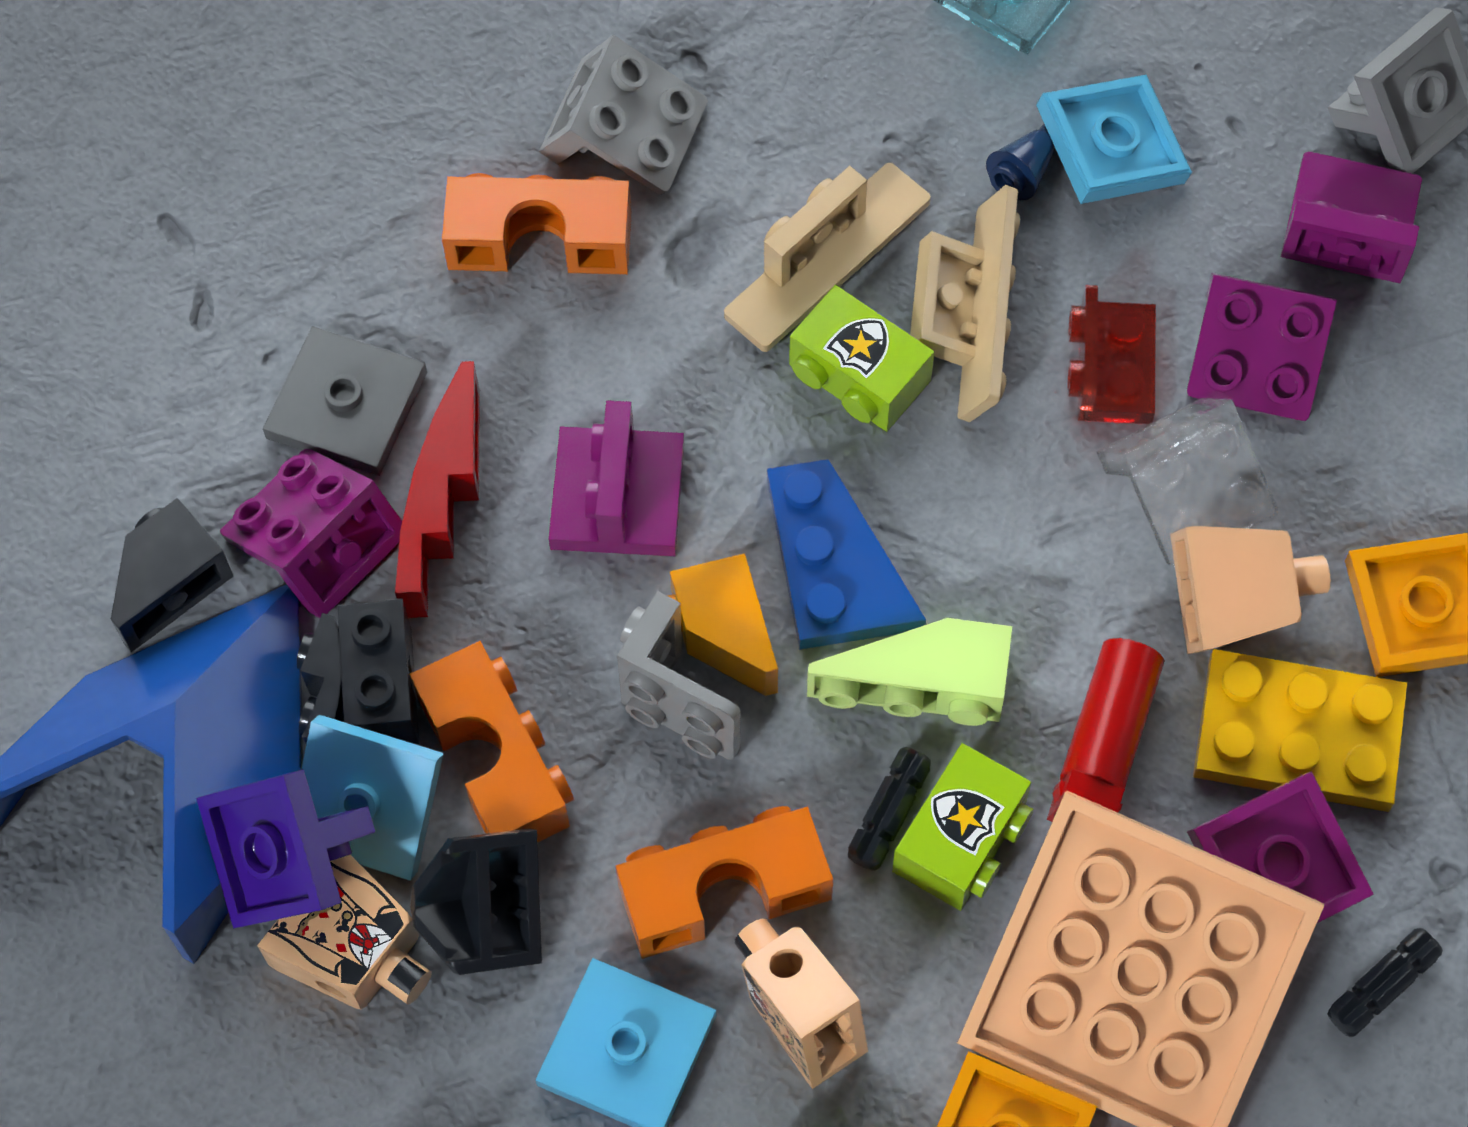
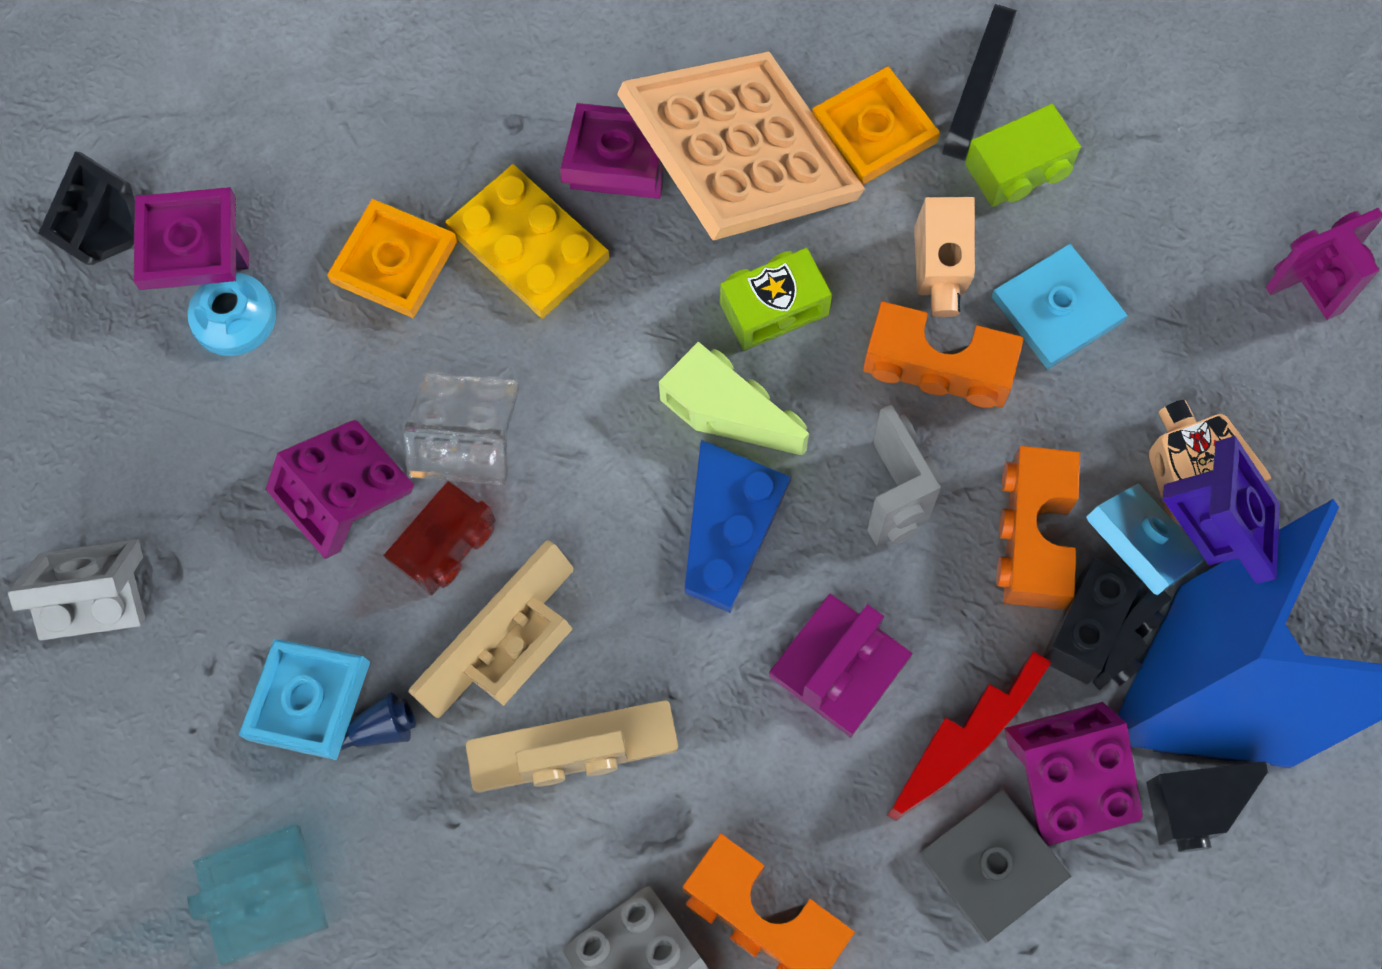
camera: 145 degrees left, 5 degrees up
(482, 902) = (1107, 422): black slope -> none
(725, 621) = (833, 517): light orange slope -> none
(860, 359) = (612, 644): lime brick -> none
(889, 808) = (807, 343): black axle -> none
(1110, 724) = (648, 296): red piece -> none
(1240, 583) = (495, 327): light nougat torso -> none
(1353, 217) = (200, 532): magenta bracket -> none
(1384, 982) = (593, 84): black axle -> none

